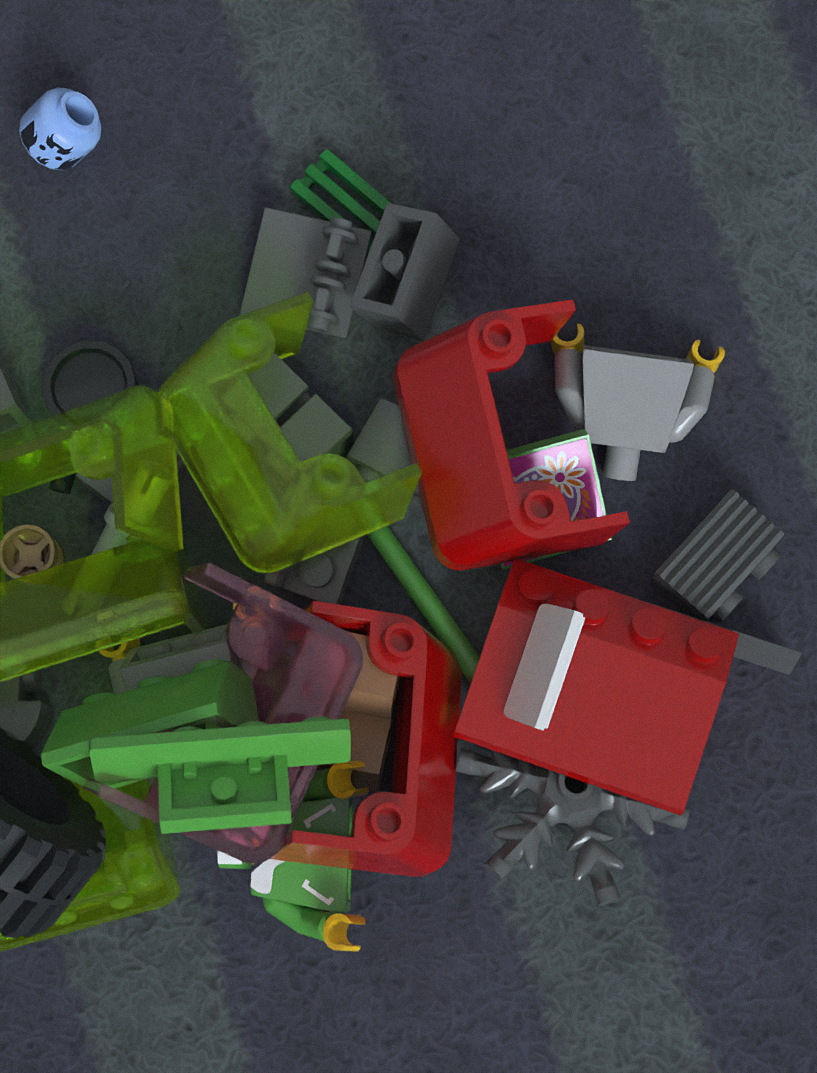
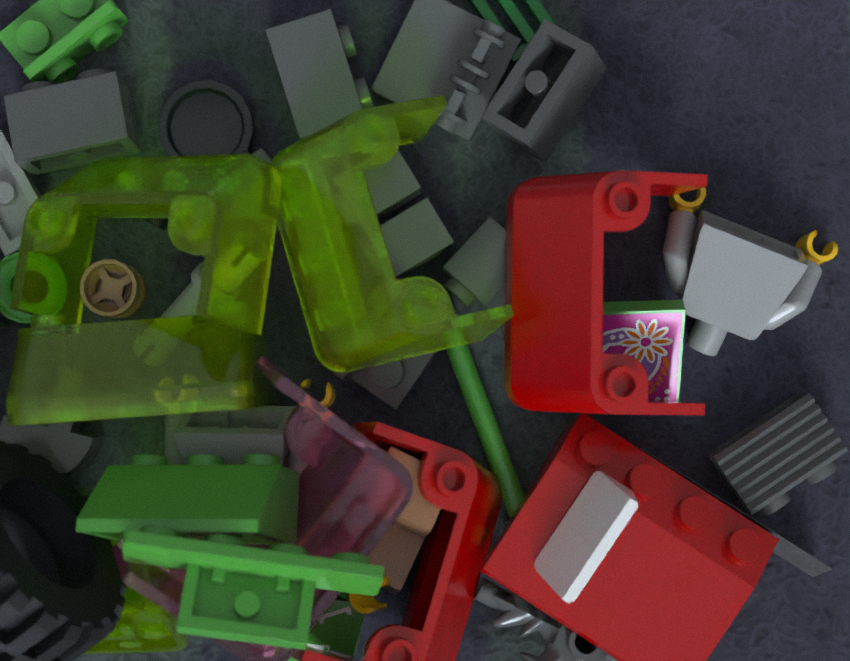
camera: 10 degrees right, 10 degrees up
(180, 301) = (315, 71): none -> dark grey brick

